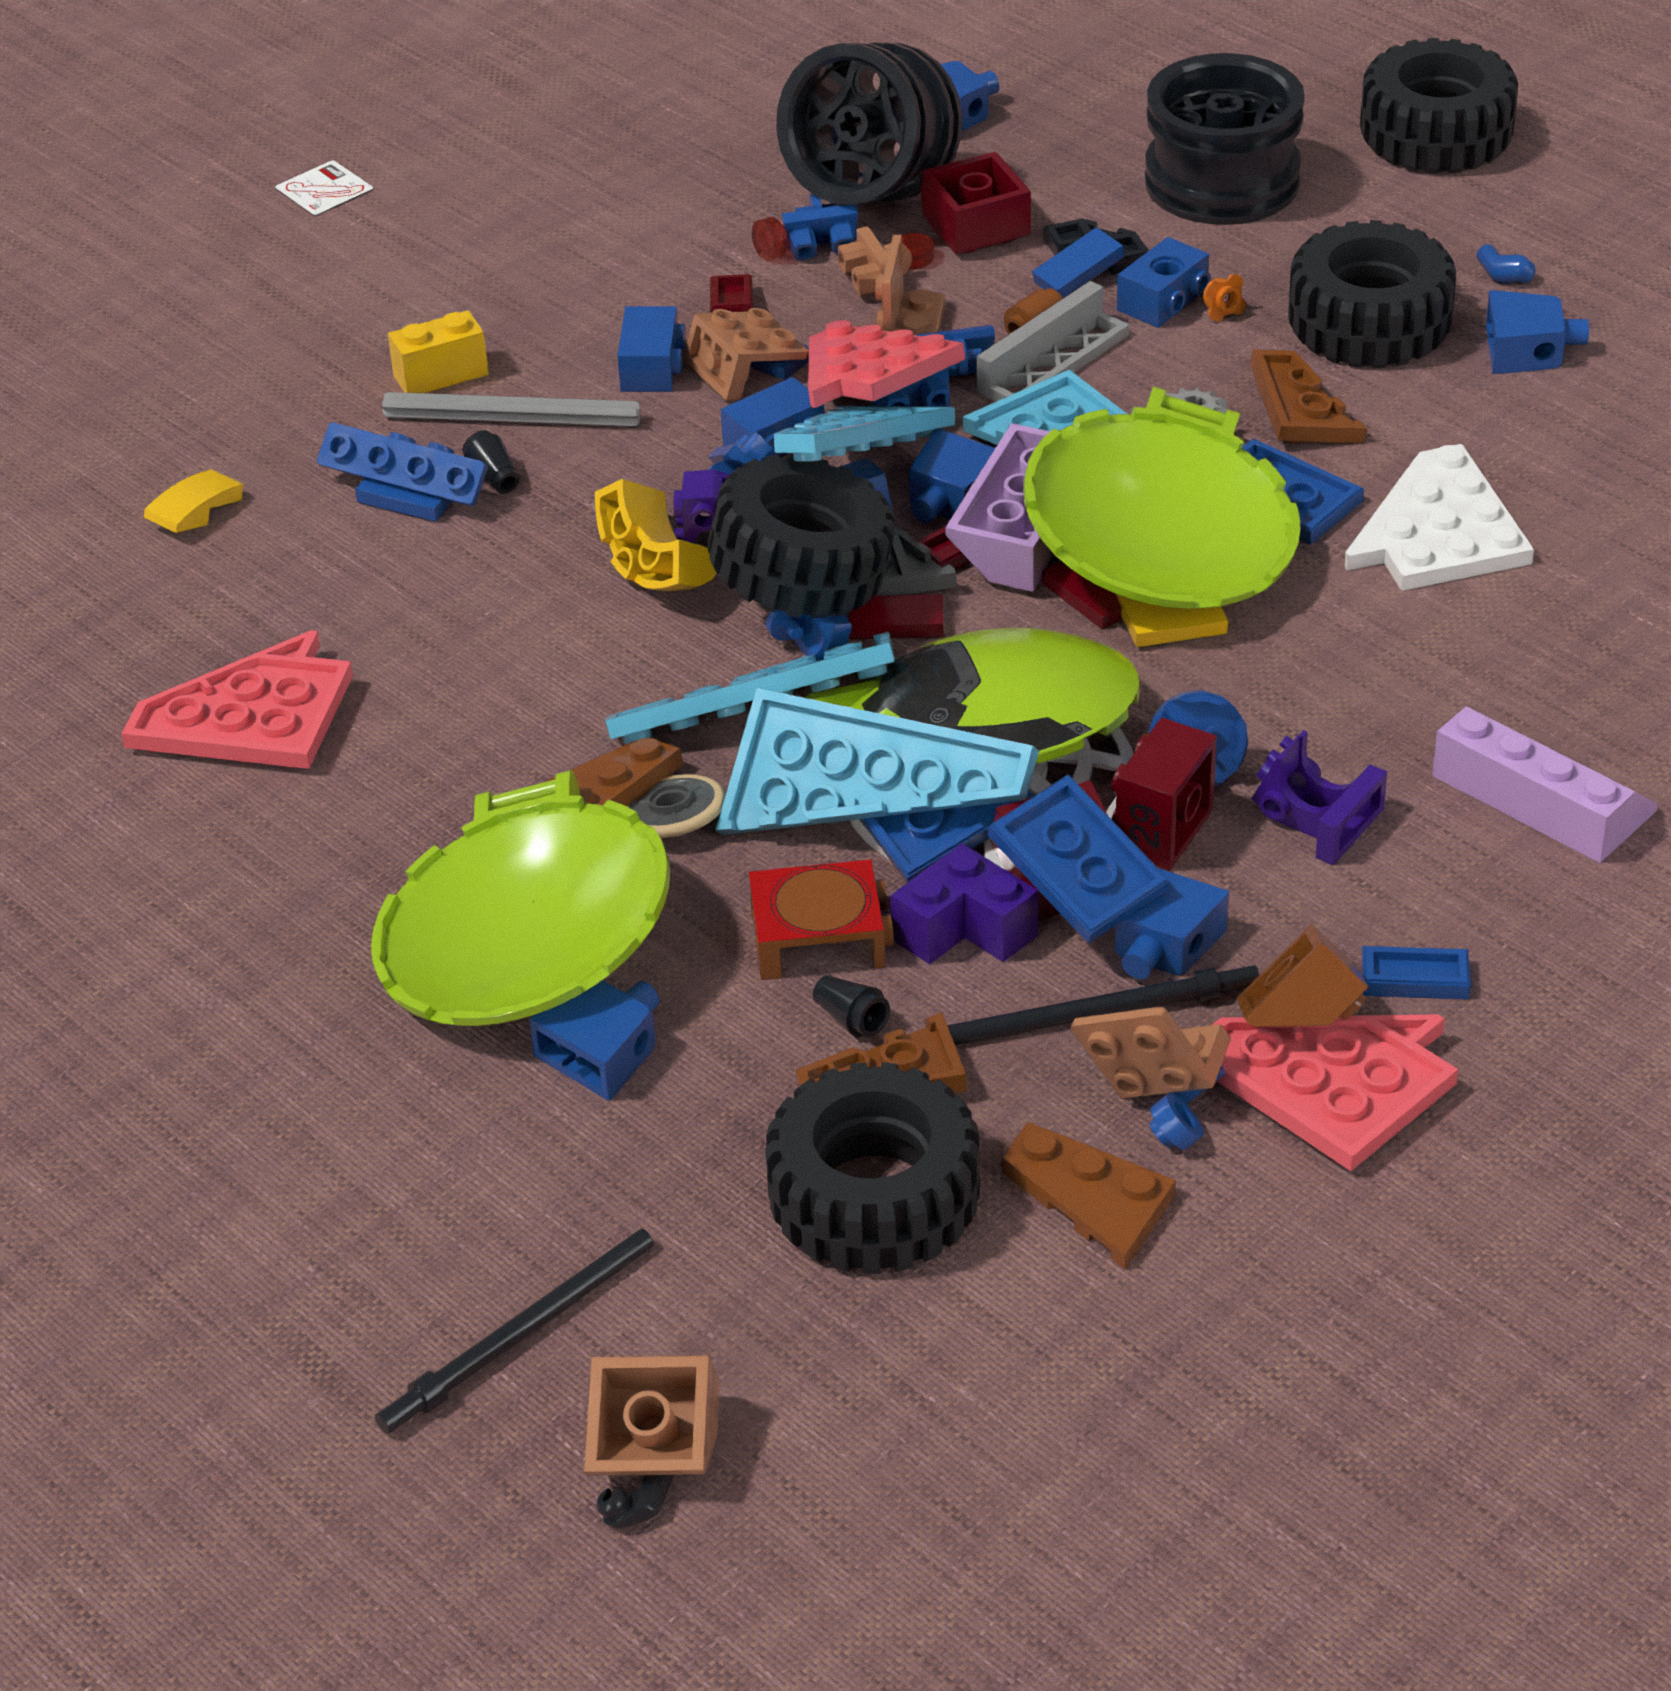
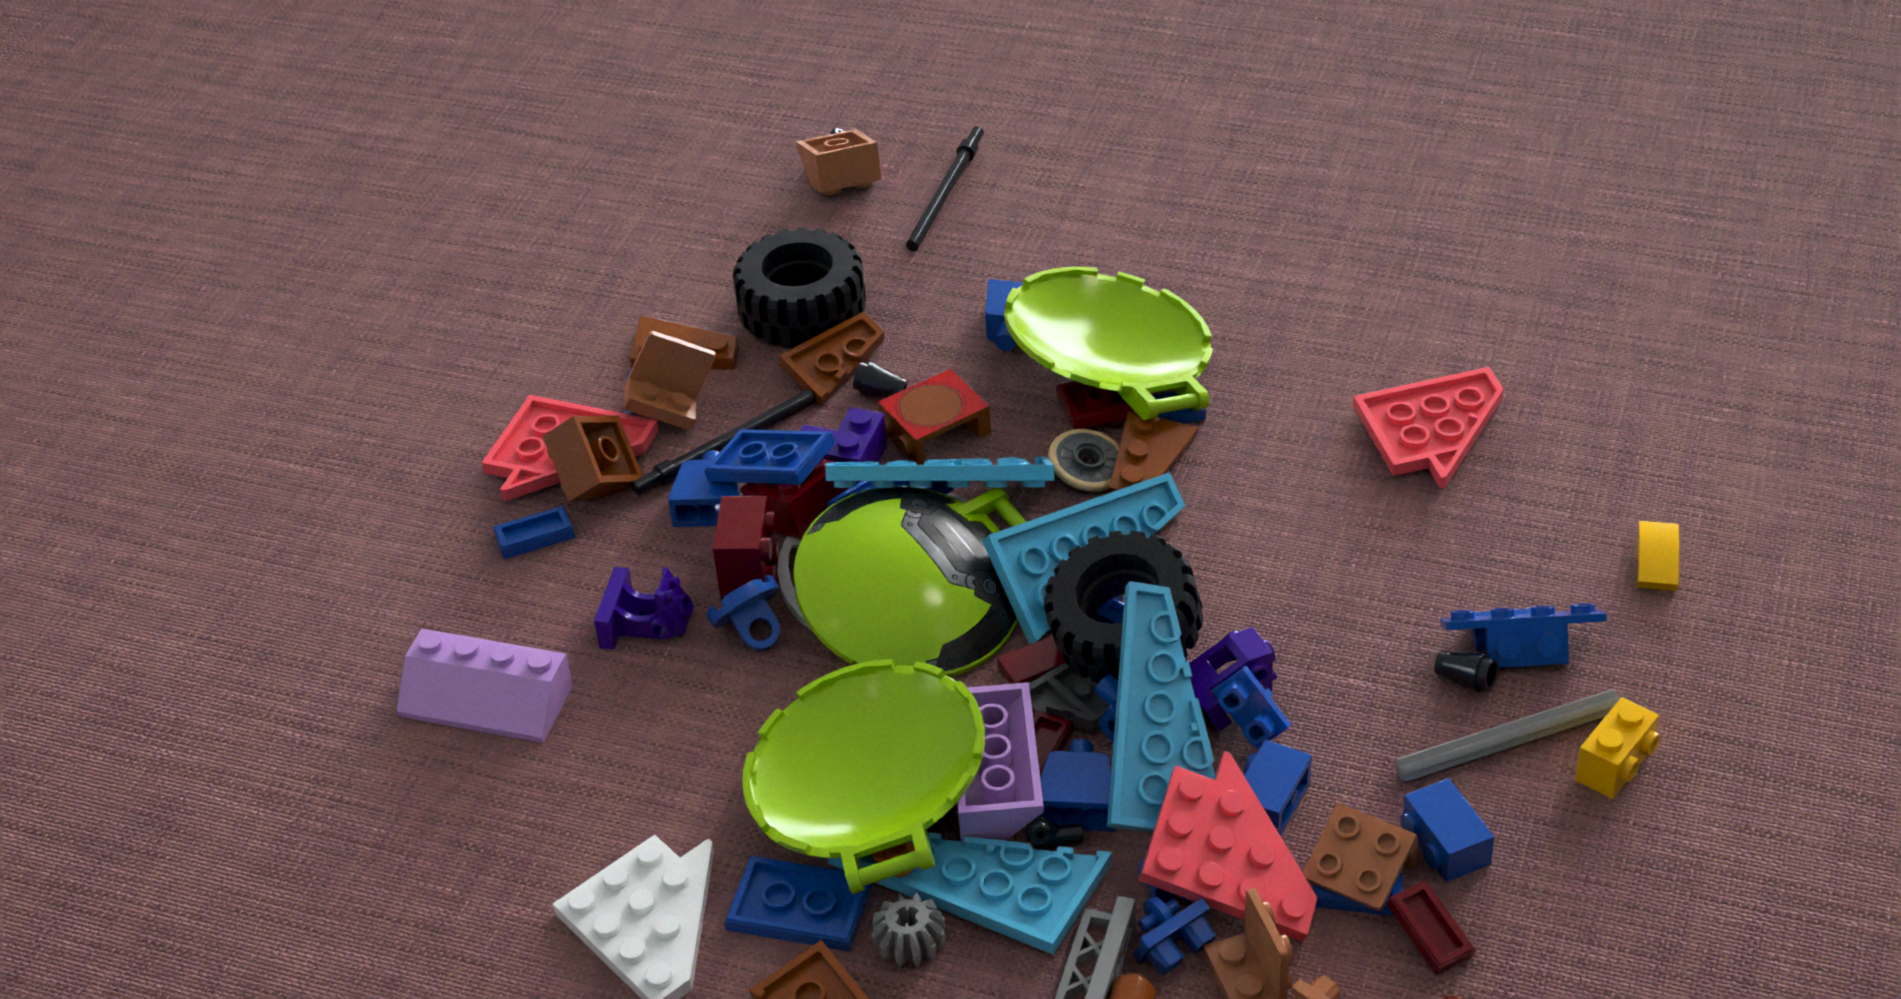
camera: 155 degrees right, 0 degrees up
(643, 542) = (1295, 645): yellow brick -> none

